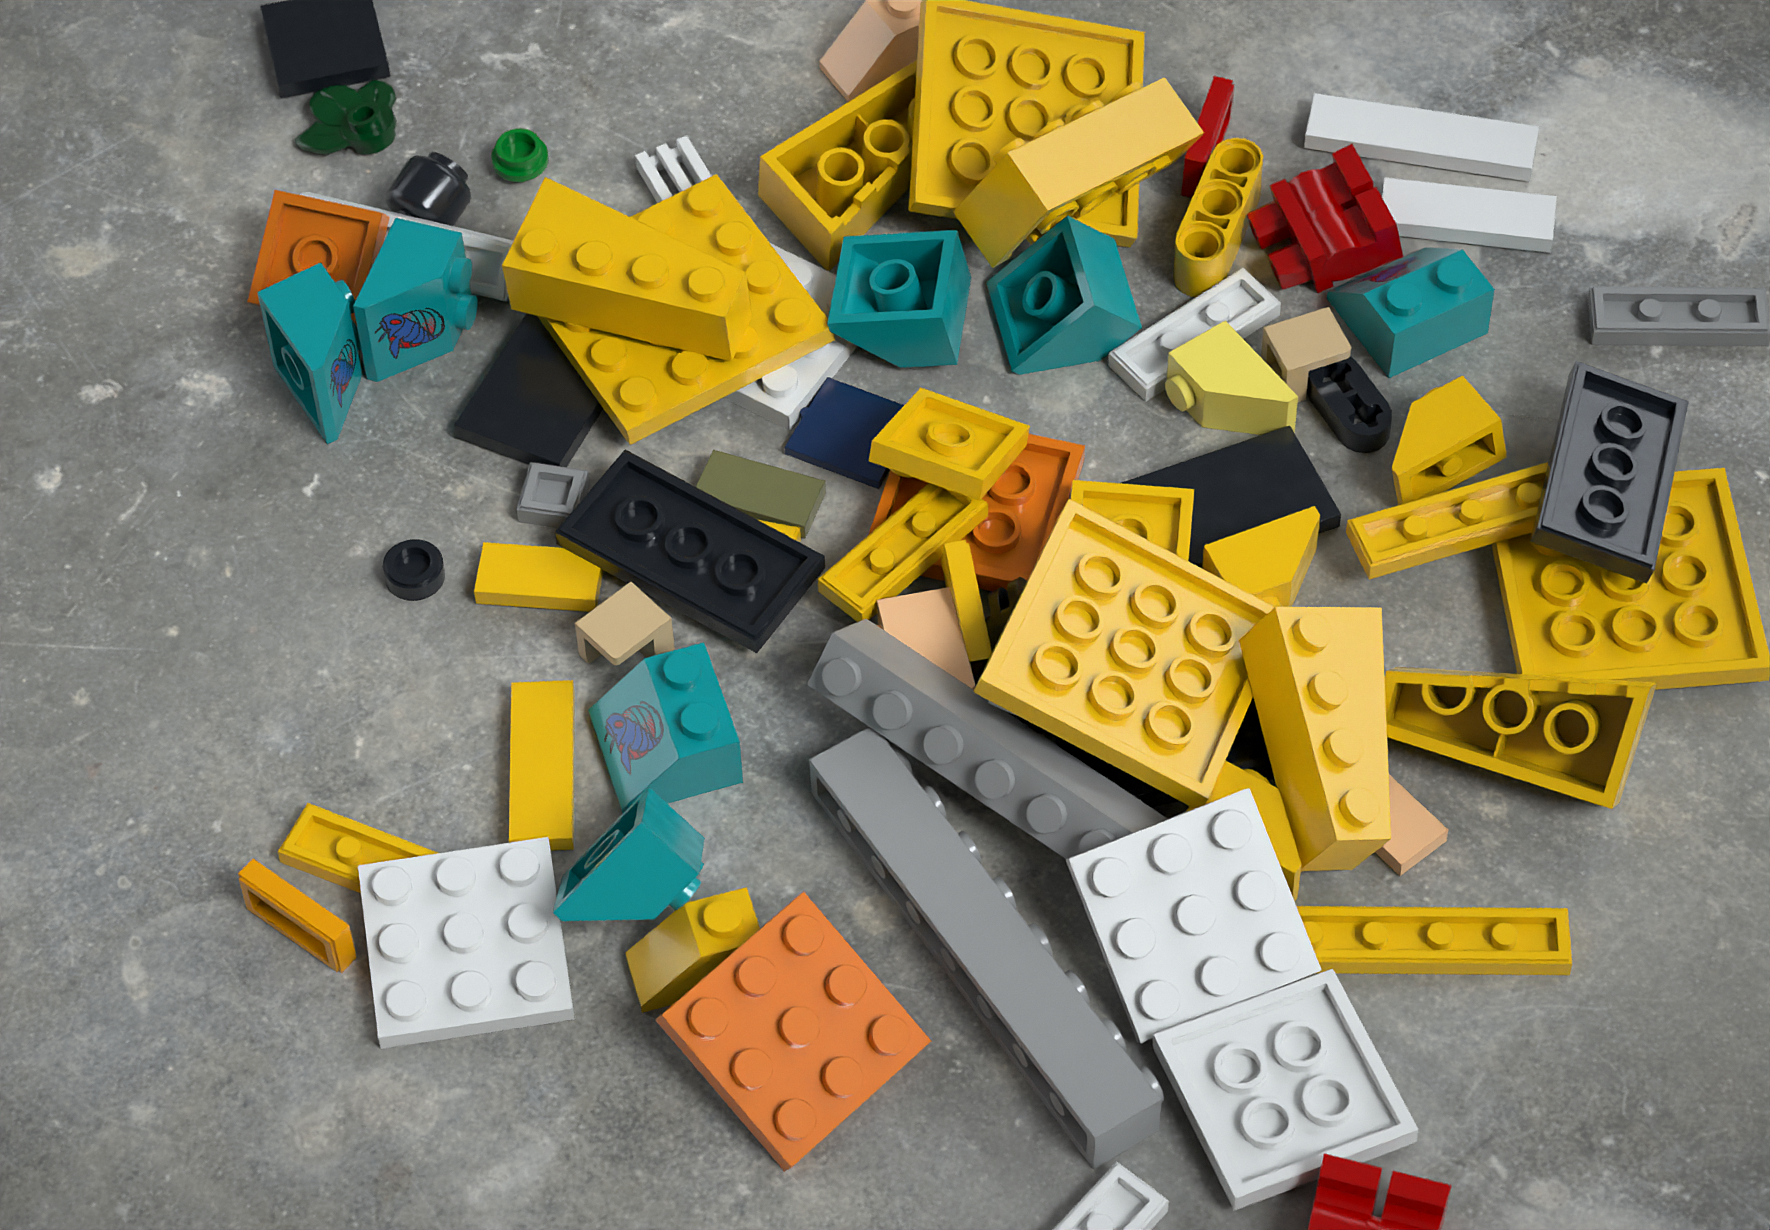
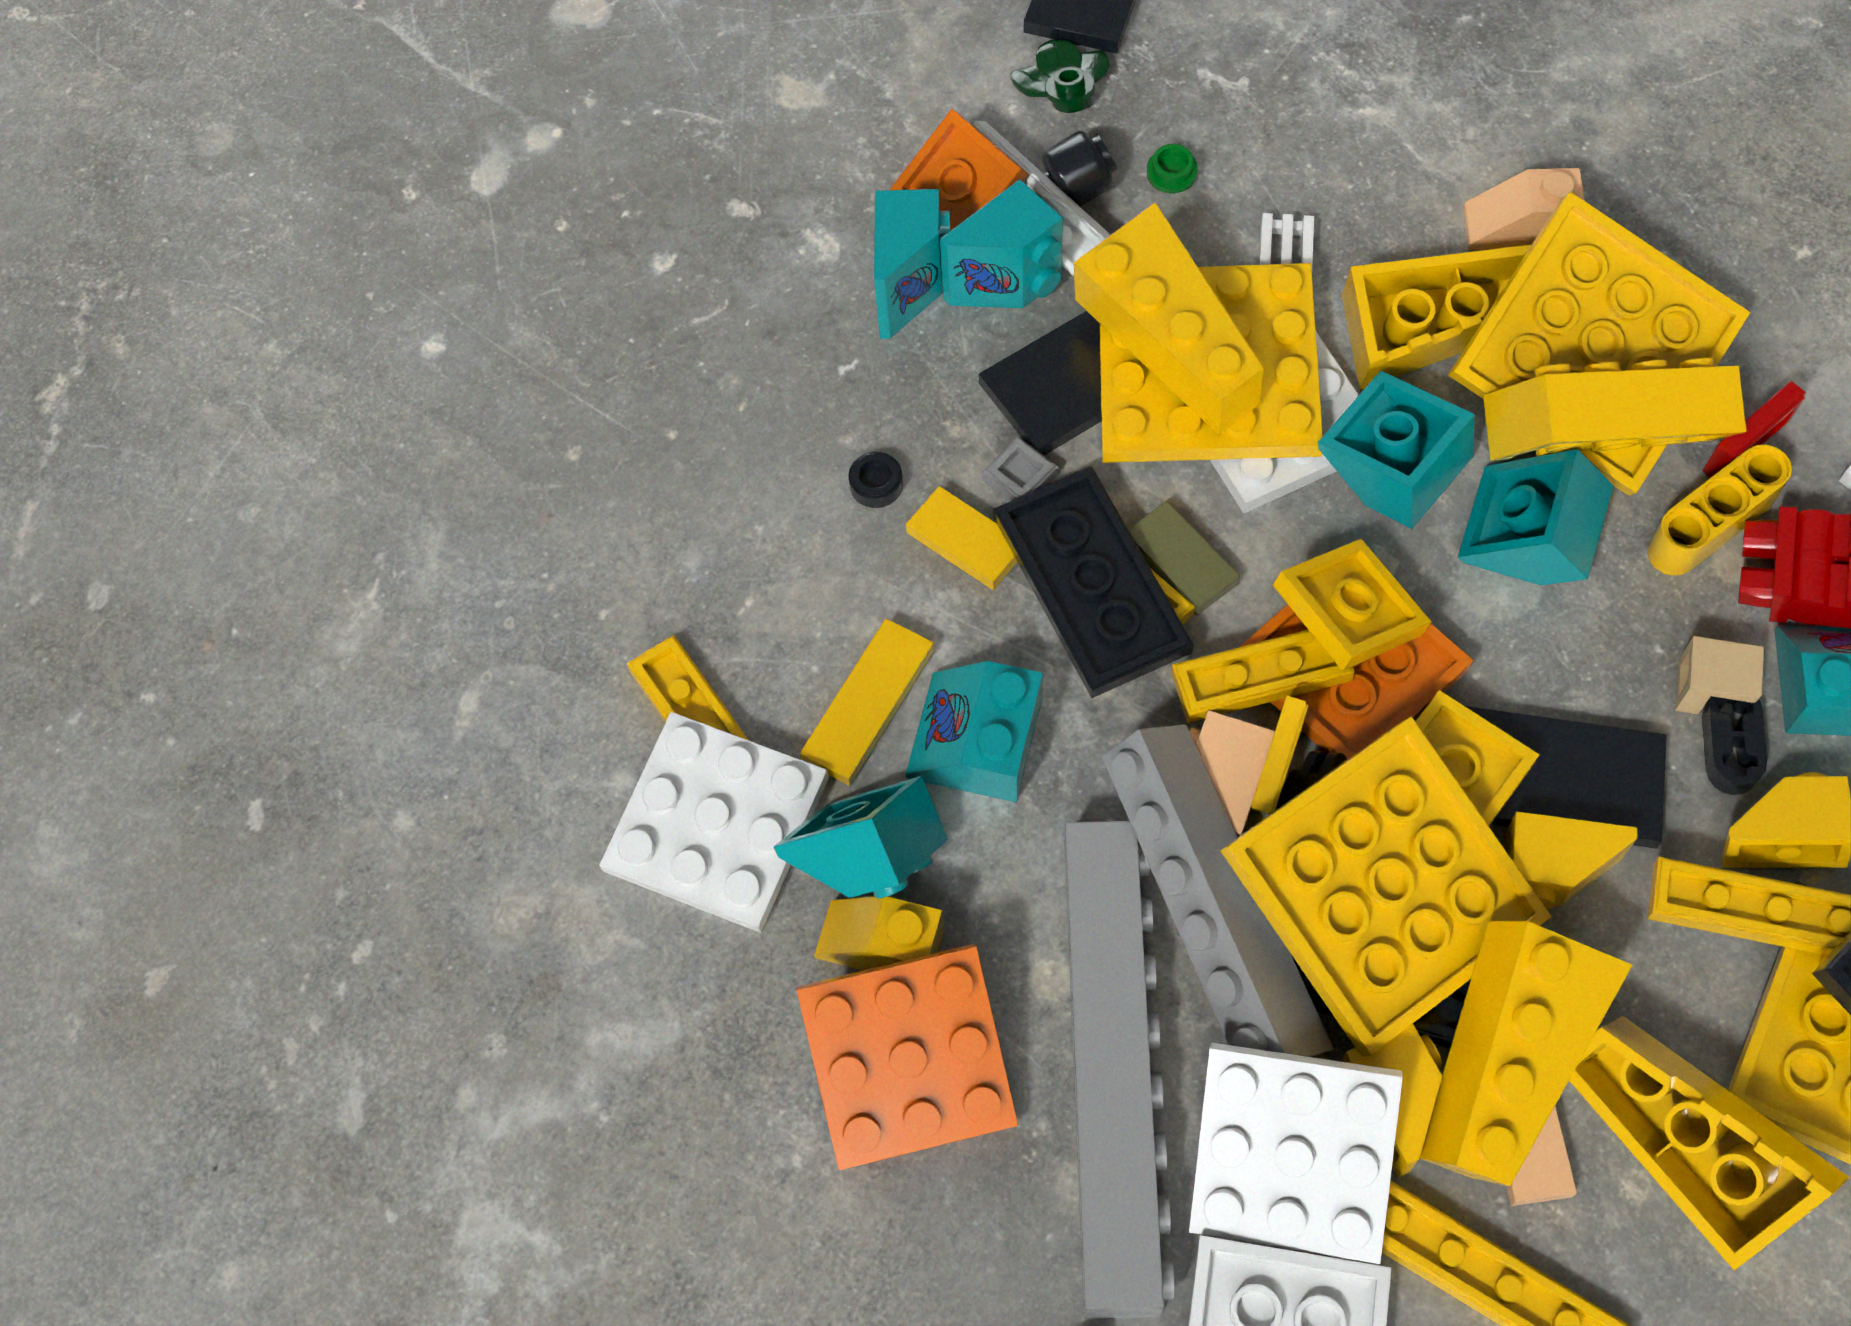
camera: 35 degrees right, 10 degrees up
(297, 916) = (602, 727): light orange tile -> none
(623, 626) = (996, 621): tan panel -> none
(840, 430) = (1285, 533): dark blue piece -> none
(1228, 384) = (1633, 669): light yellow slope -> none
(1237, 299) = (1635, 604): white tile -> none

